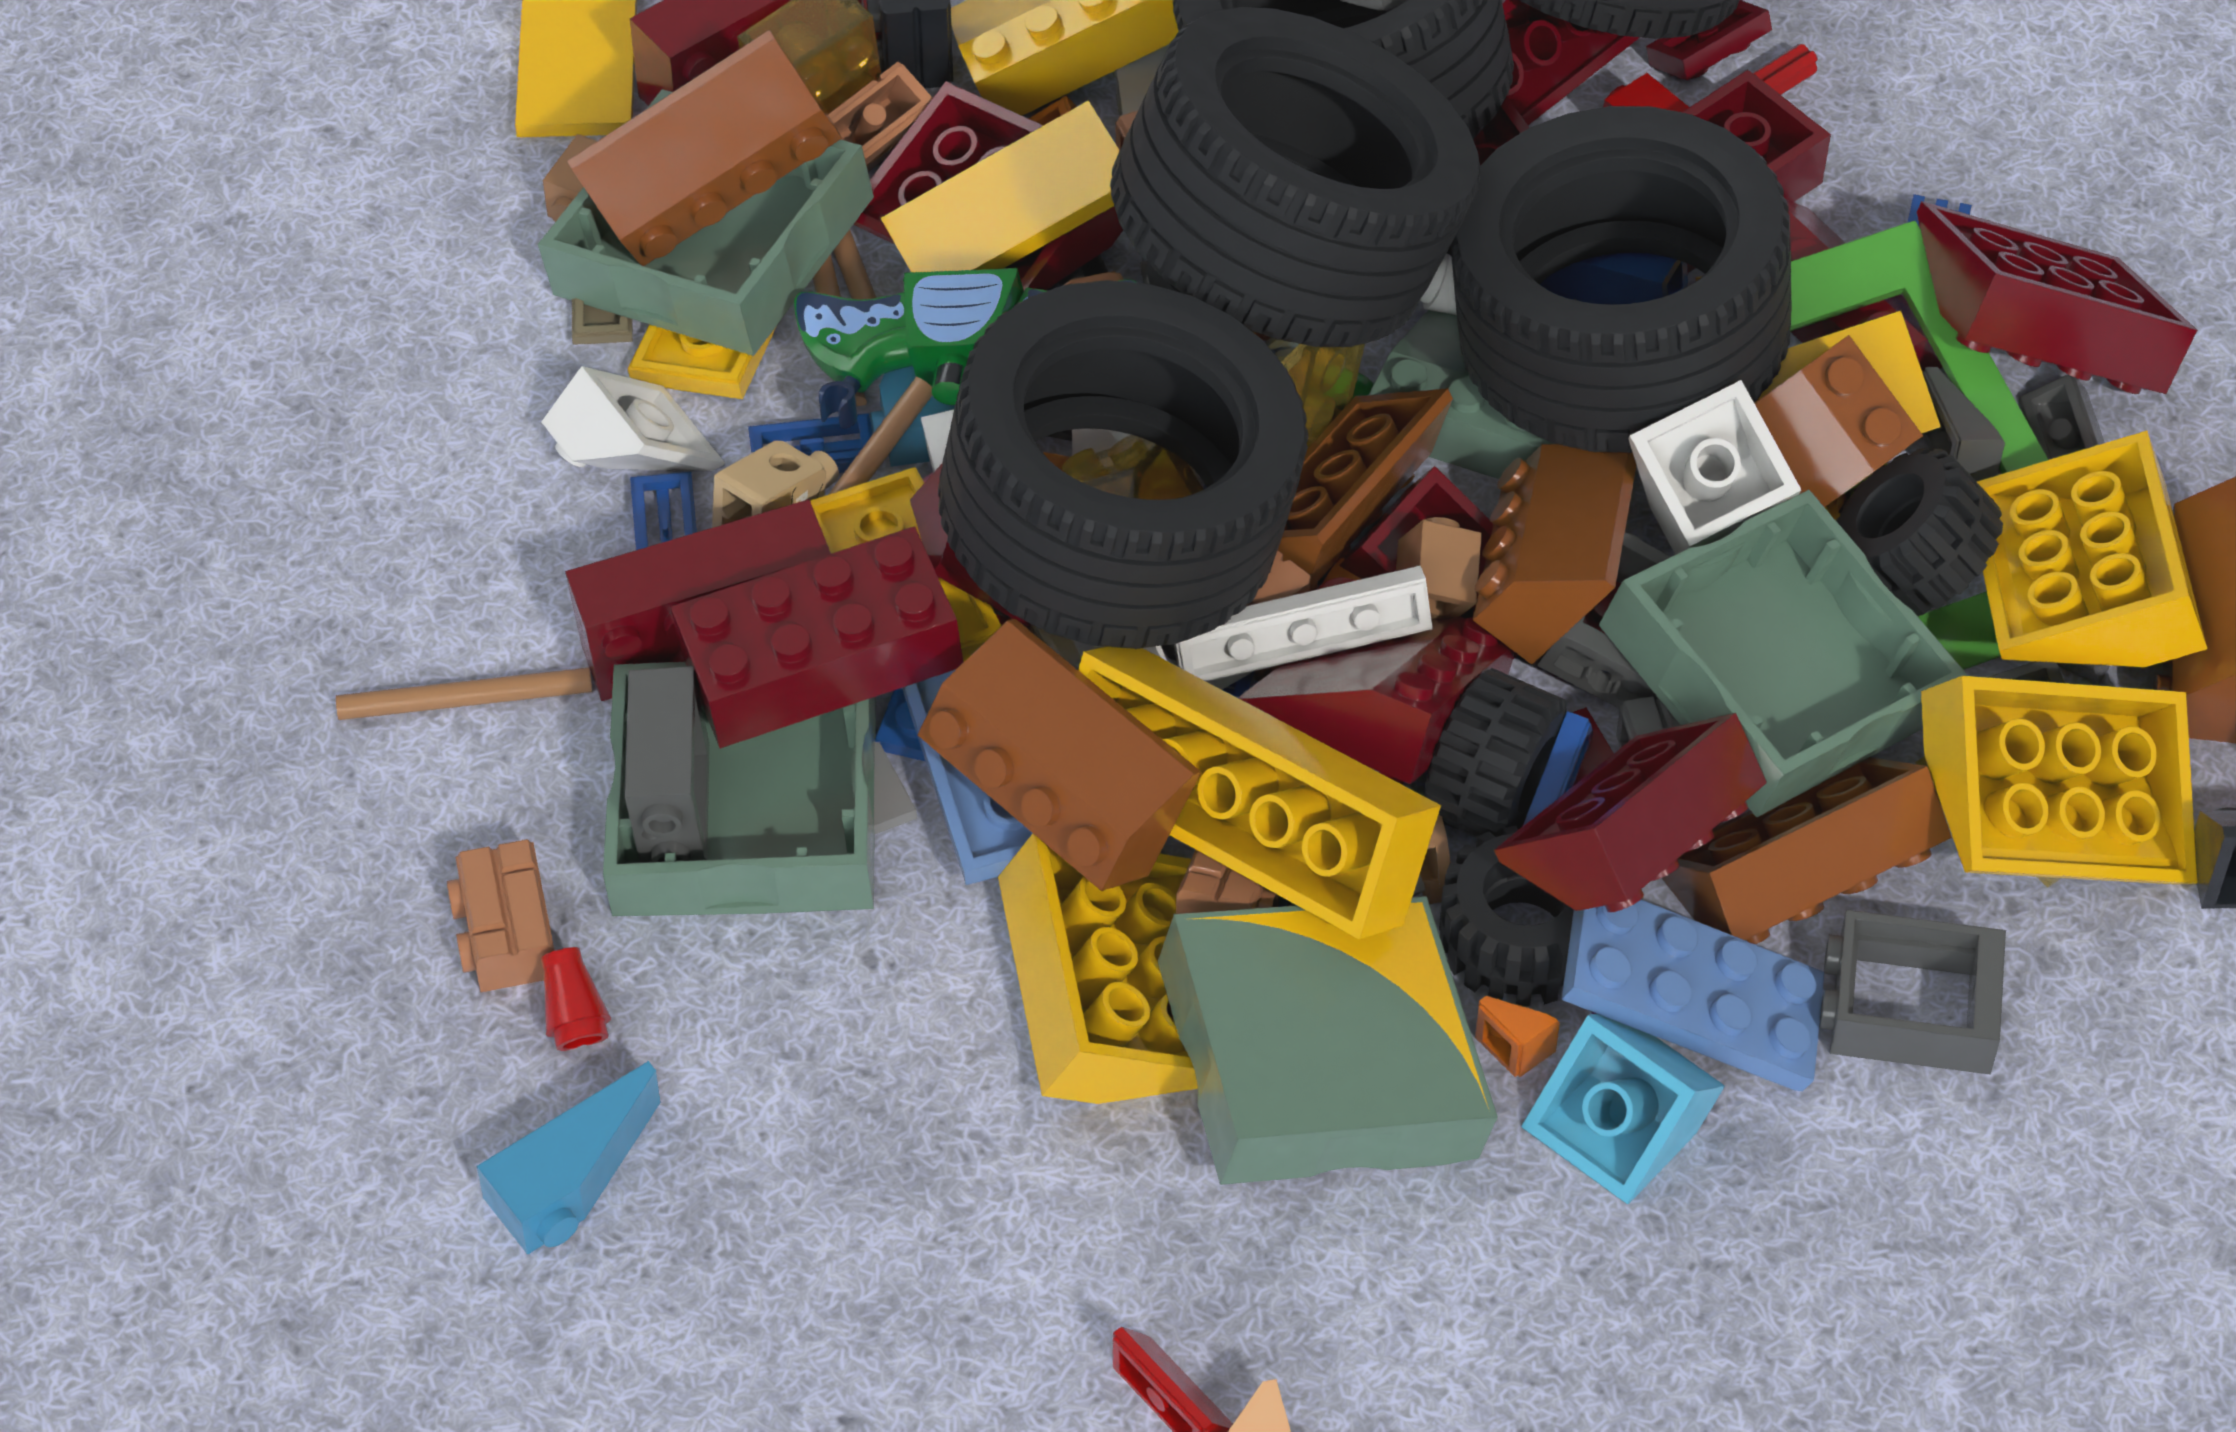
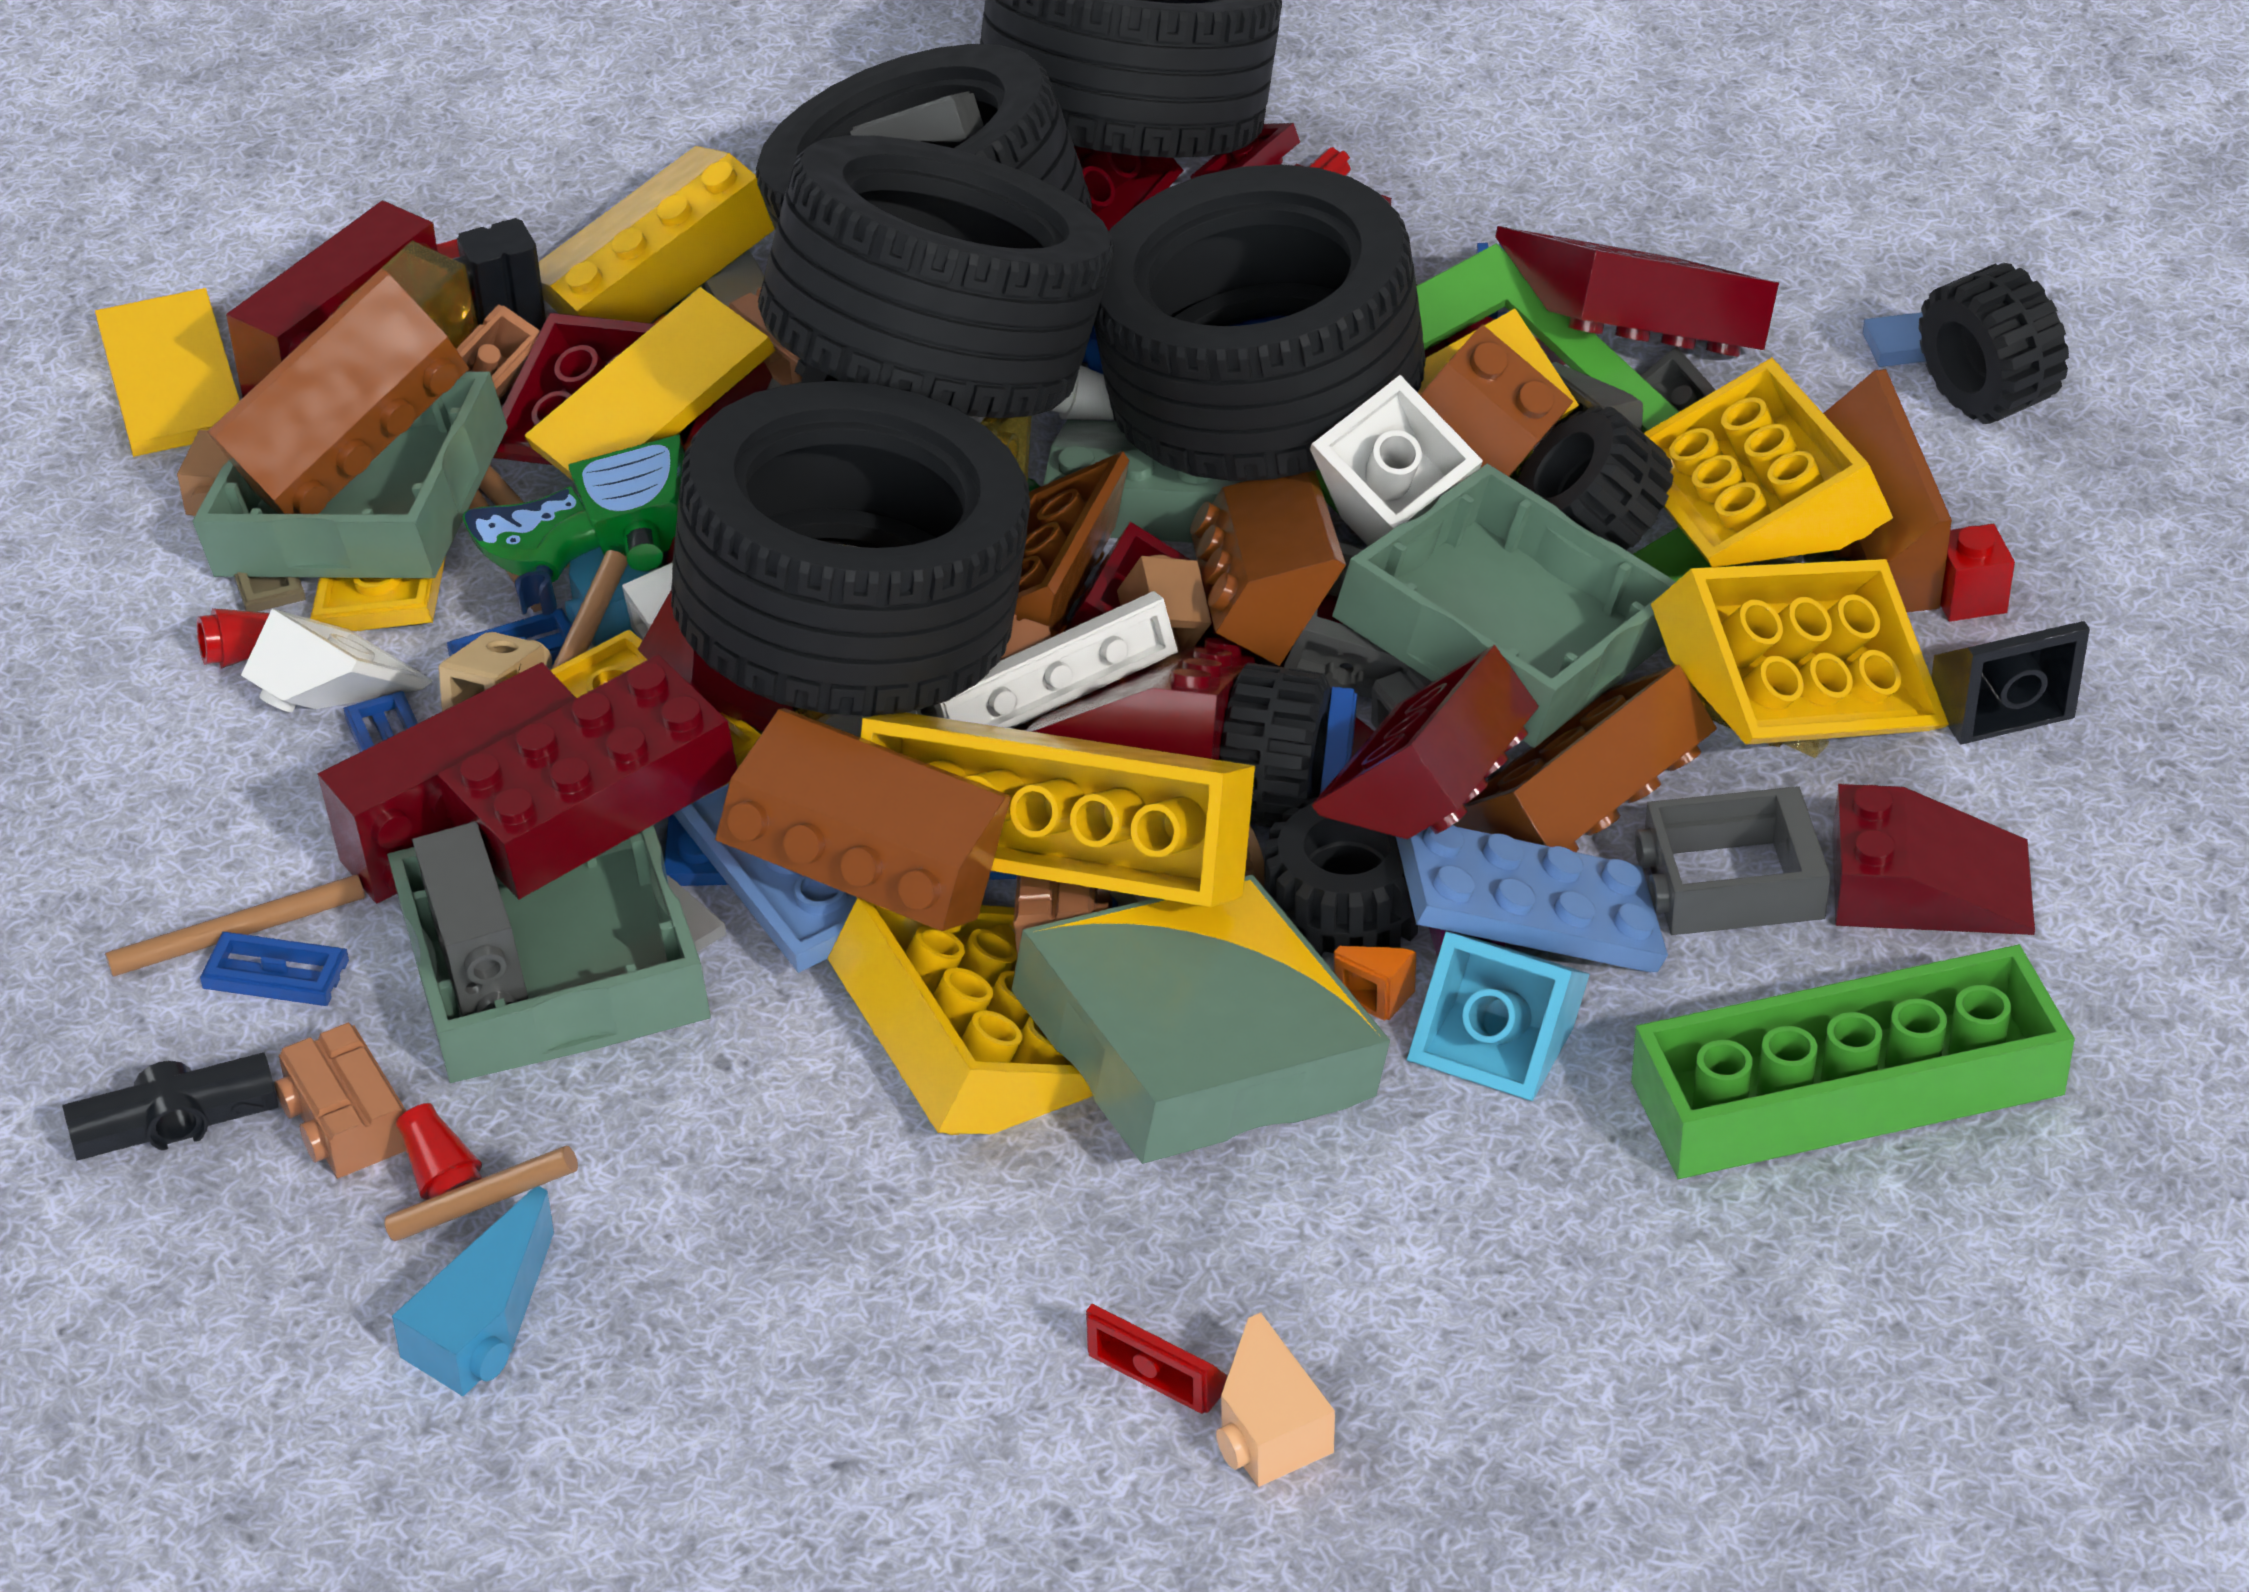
camera: 15 degrees left, 10 degrees down
(347, 879) = (170, 1105): none -> black piece
(517, 788) = (272, 976): none -> blue tile
(548, 369) = (228, 635): none -> red cone
(597, 1054) = (481, 1193): none -> medium nougat bar
(1949, 1252) = (1850, 1061): none -> bright green brick
(2112, 1047) = (1926, 866): none -> dark red slope

